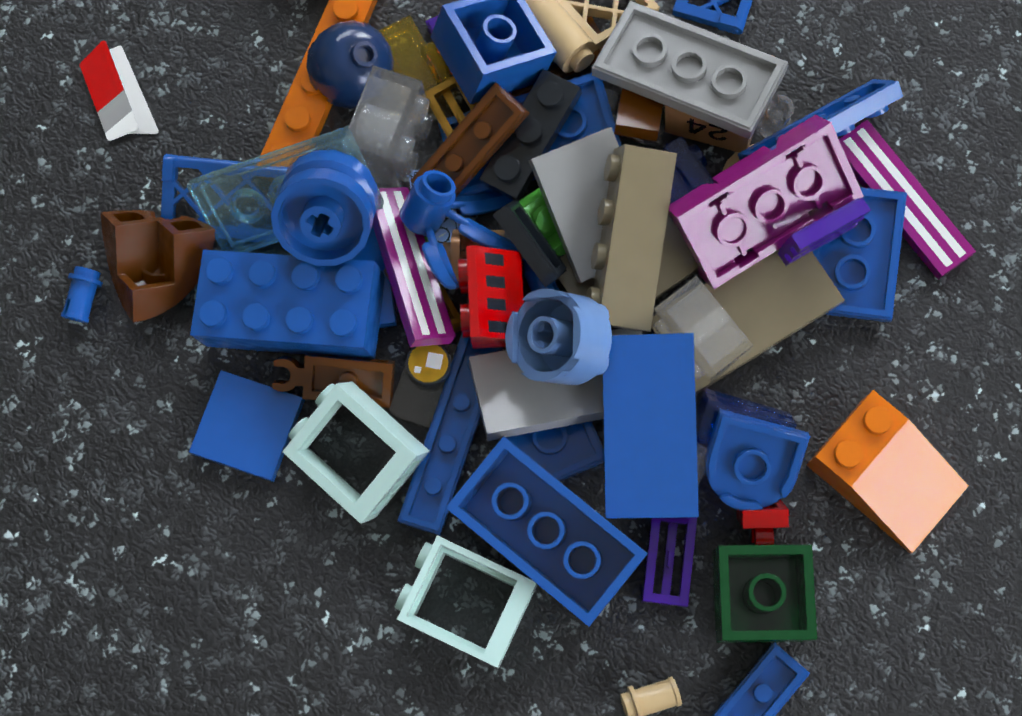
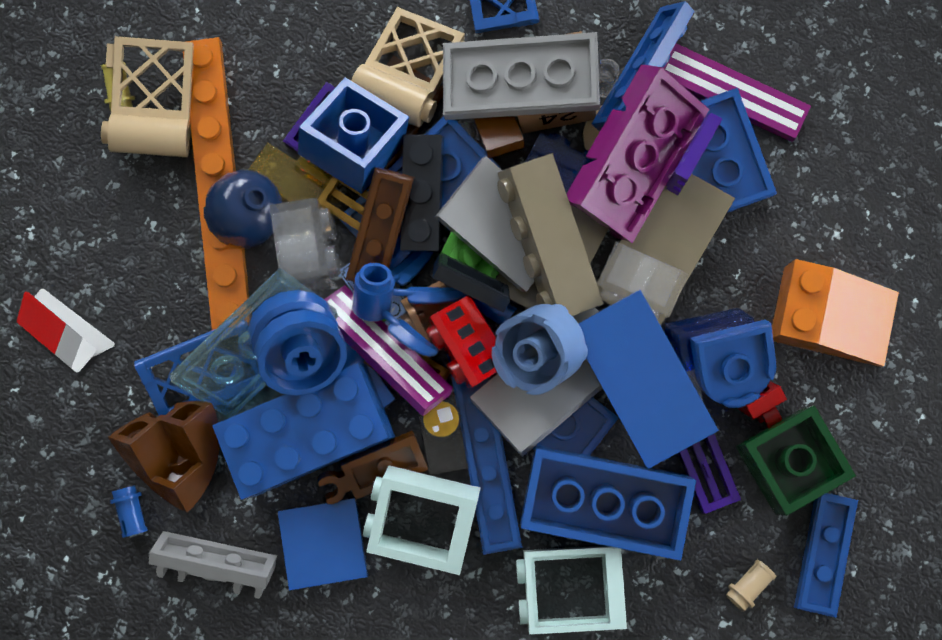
camera: 30 degrees left, 5 degrees up
(131, 385) = (212, 561): none -> light grey plate

